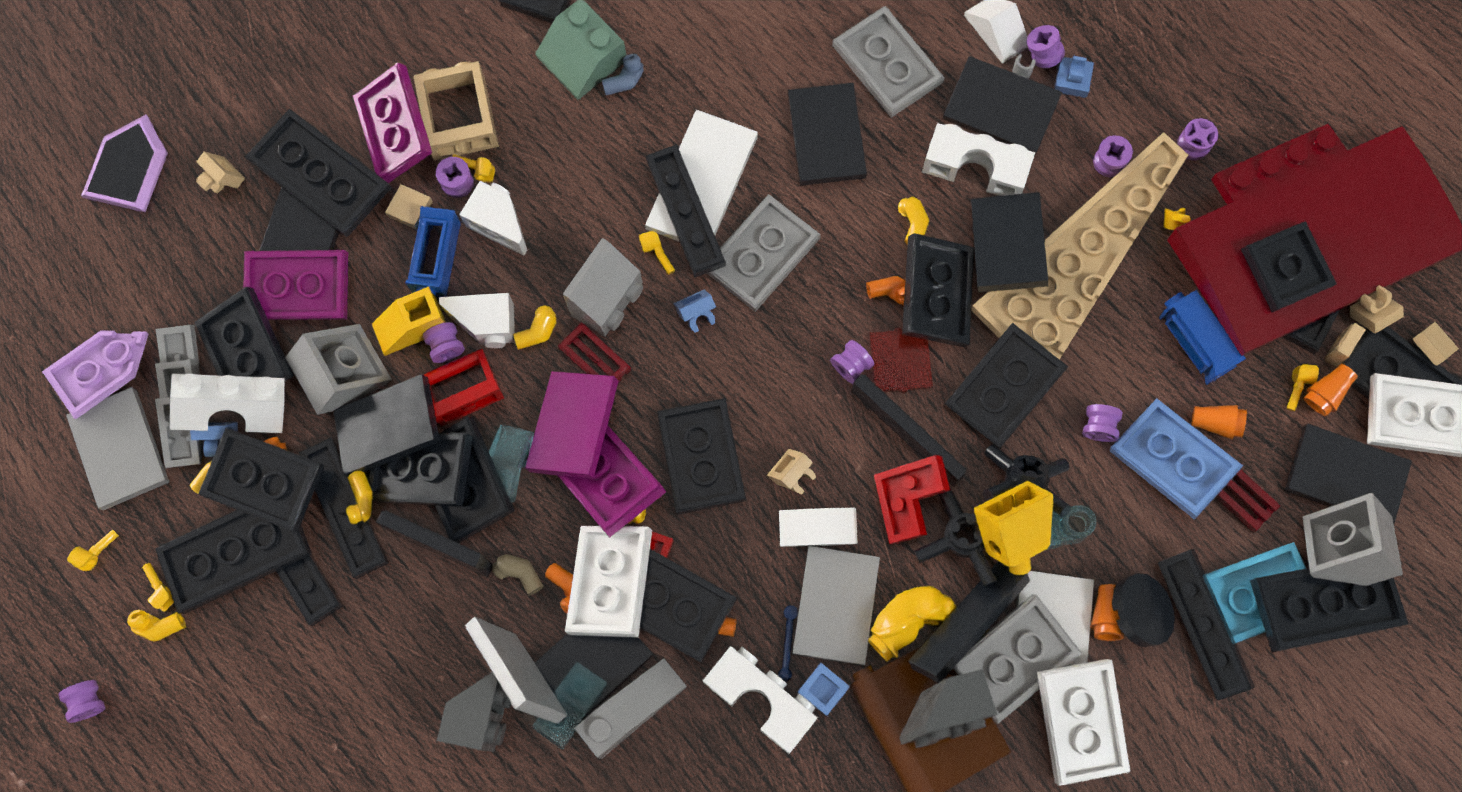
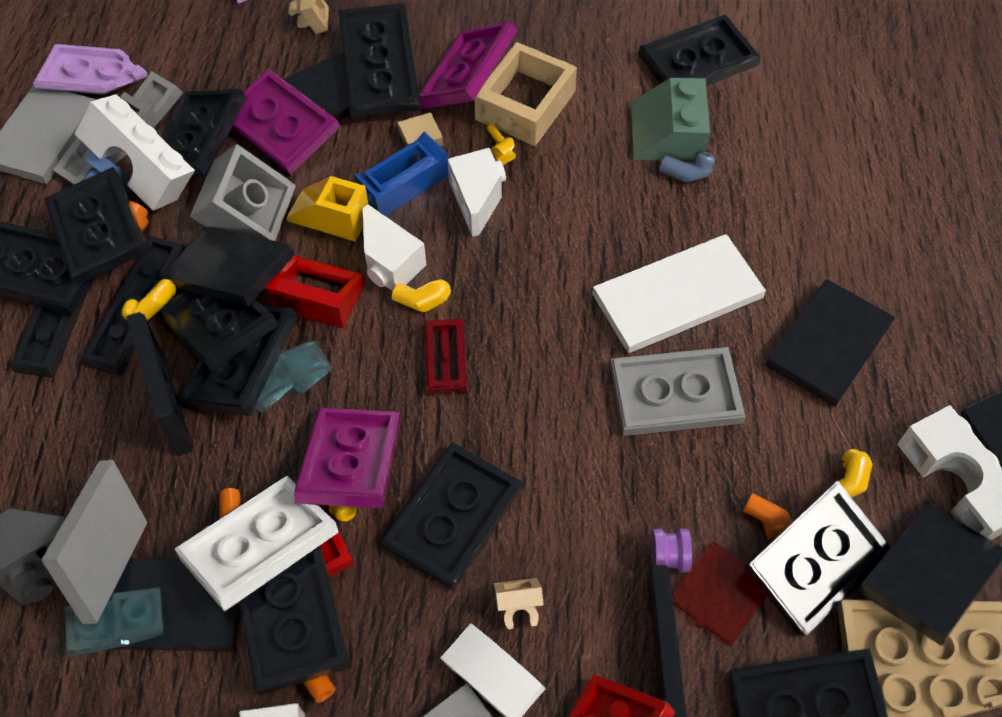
camera: 40 degrees right, 15 degrees down
(443, 342) = (338, 244): medium lavender wheel -> none
(459, 184) = (475, 134): medium lavender wheel -> none
(520, 568) = (206, 469): dark tan arm -> none
(572, 424) = (368, 389): magenta tile -> none
(603, 289) = (504, 300): light grey slope -> none
(630, 708) = (157, 677): light grey slope -> none
(651, 241) = (585, 305): yellow hand -> none
(685, 211) = (637, 303): black tile -> none
(695, 305) = (571, 384): medium blue tile -> none
(888, 61) = (947, 328): light grey tile -> none

